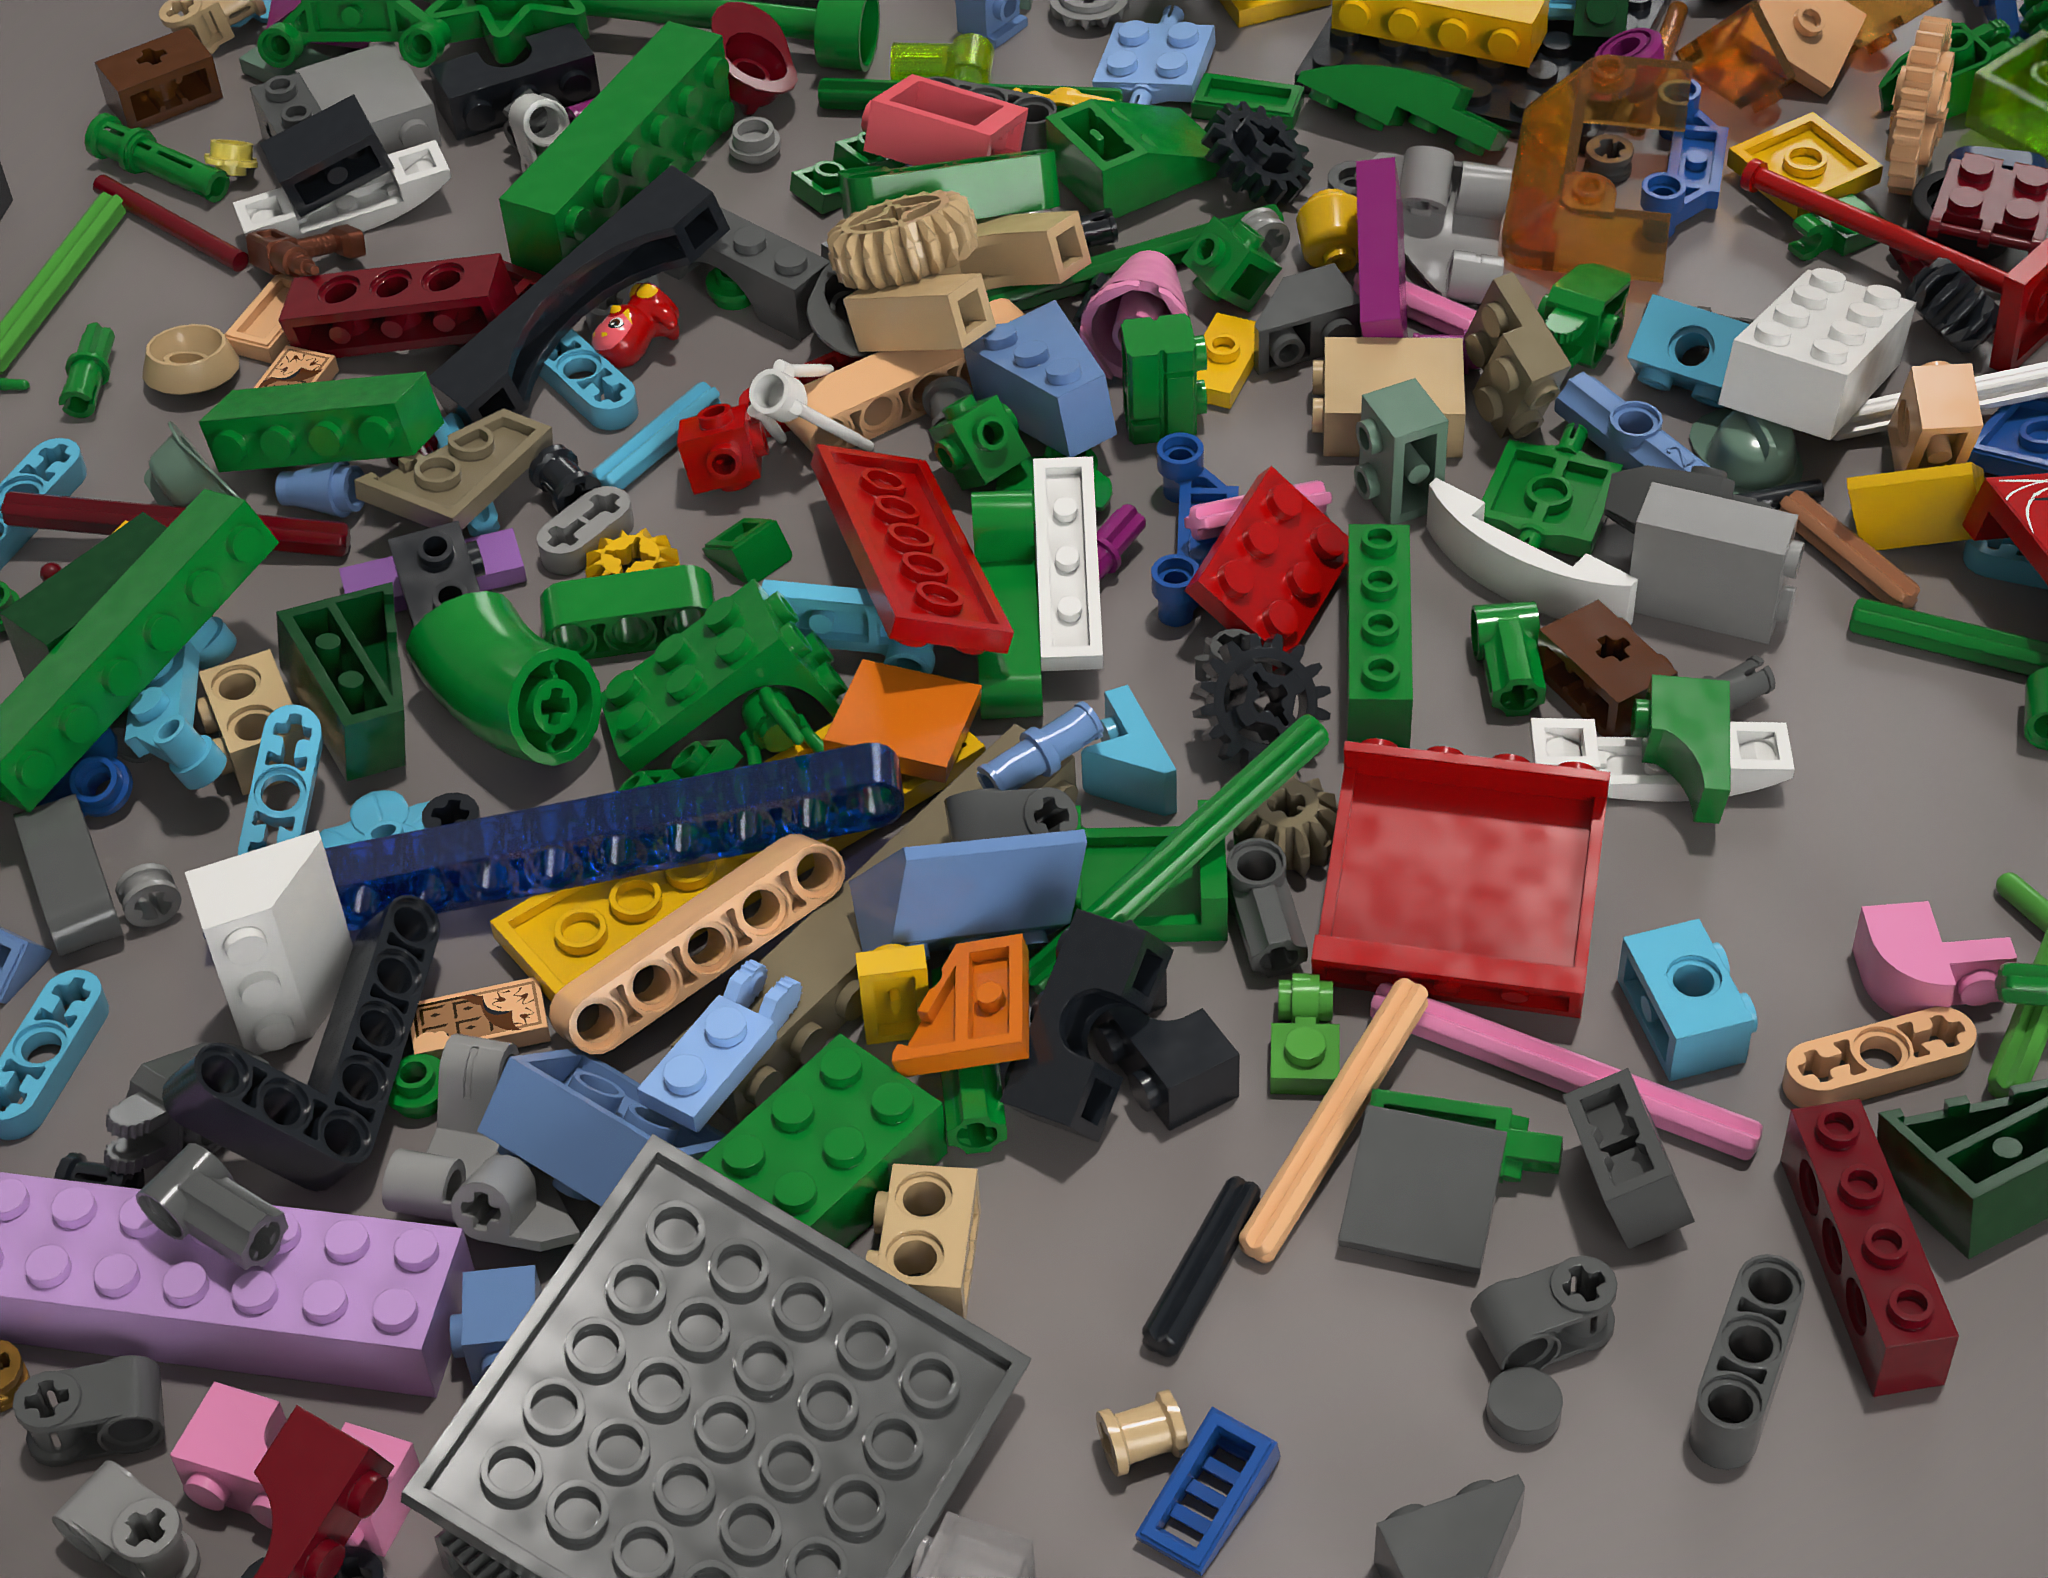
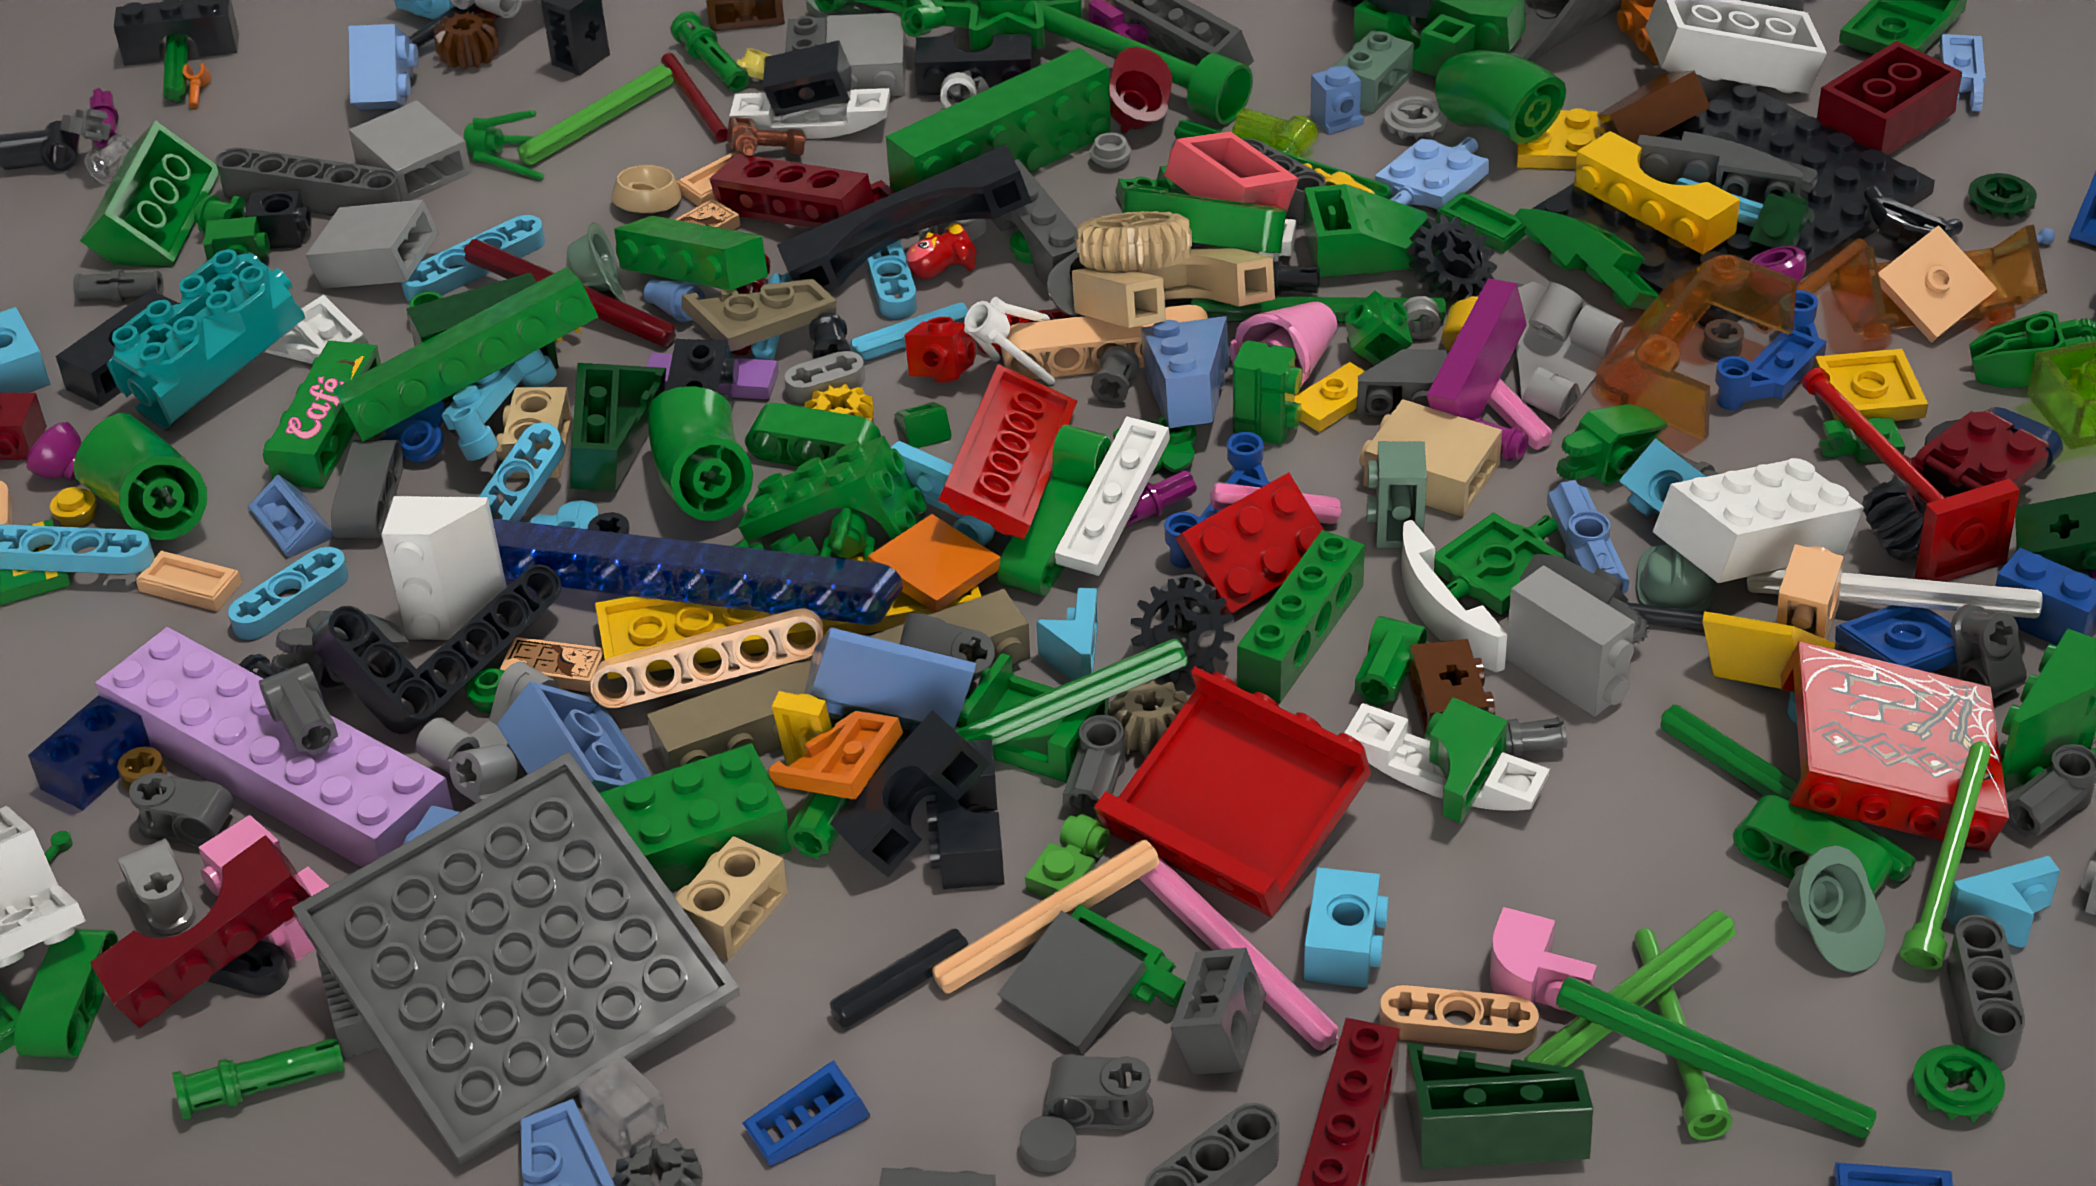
camera: 25 degrees right, 5 degrees down
(87, 371) = (580, 178): green axle -> none
(719, 1048) = (673, 724): light blue hinge -> none
(978, 440) = (1129, 391): green brick -> none
(1042, 749) = (1001, 609): medium blue pin -> none
(1142, 1432) = (784, 1060): tan bush -> none
(1517, 359) = (1522, 459): dark tan plate -> none
(1850, 552) = (1697, 671): nougat axle -> none
(1920, 105) = (1967, 360): light nougat gear -> none

